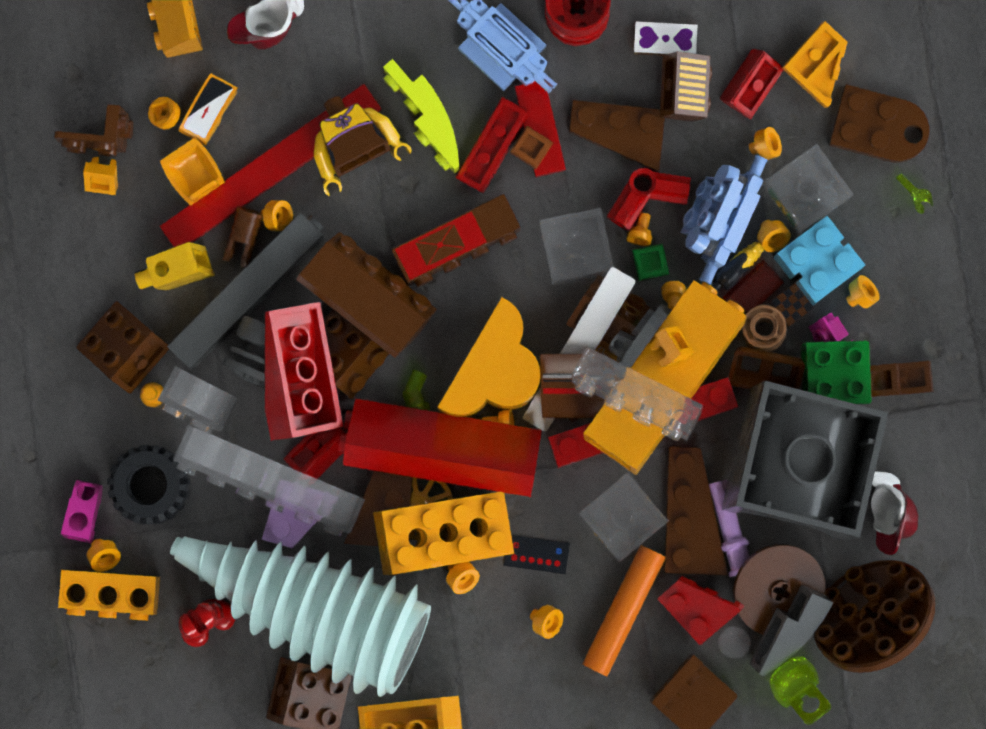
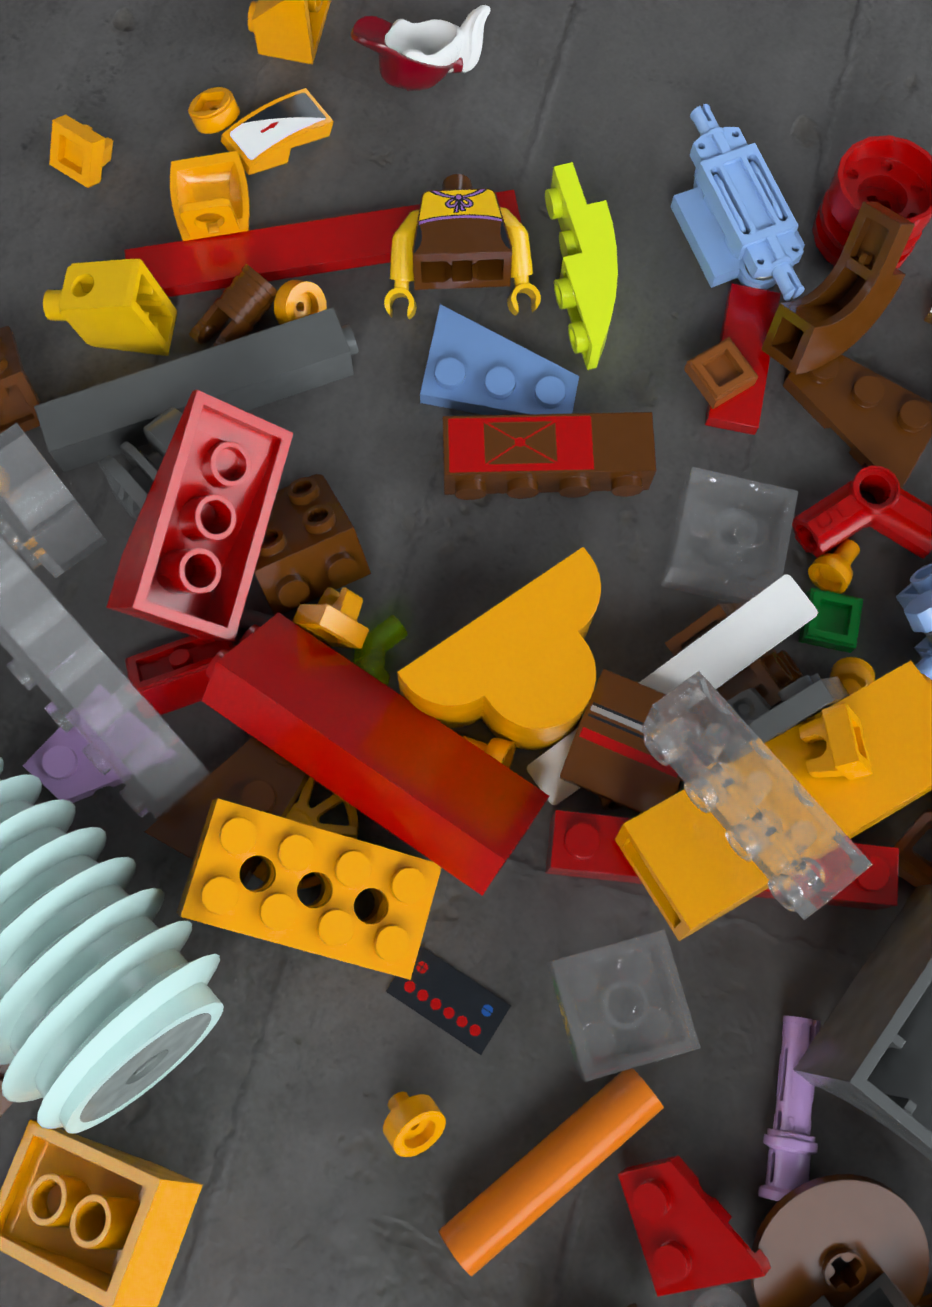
camera: 20 degrees right, 10 degrees down
(117, 131) = (116, 95): reddish brown bracket -> none
(367, 294) = (373, 464): reddish brown slope -> none
(385, 387) = (334, 619): none -> light orange tile
(404, 204) = (489, 374): none -> medium blue wing
(462, 577) = (307, 980): light orange tile -> none
(492, 145) = (663, 348): red tile -> none
(582, 80) = (848, 300): none -> reddish brown arch
(692, 527) = (725, 1089): reddish brown wing -> none

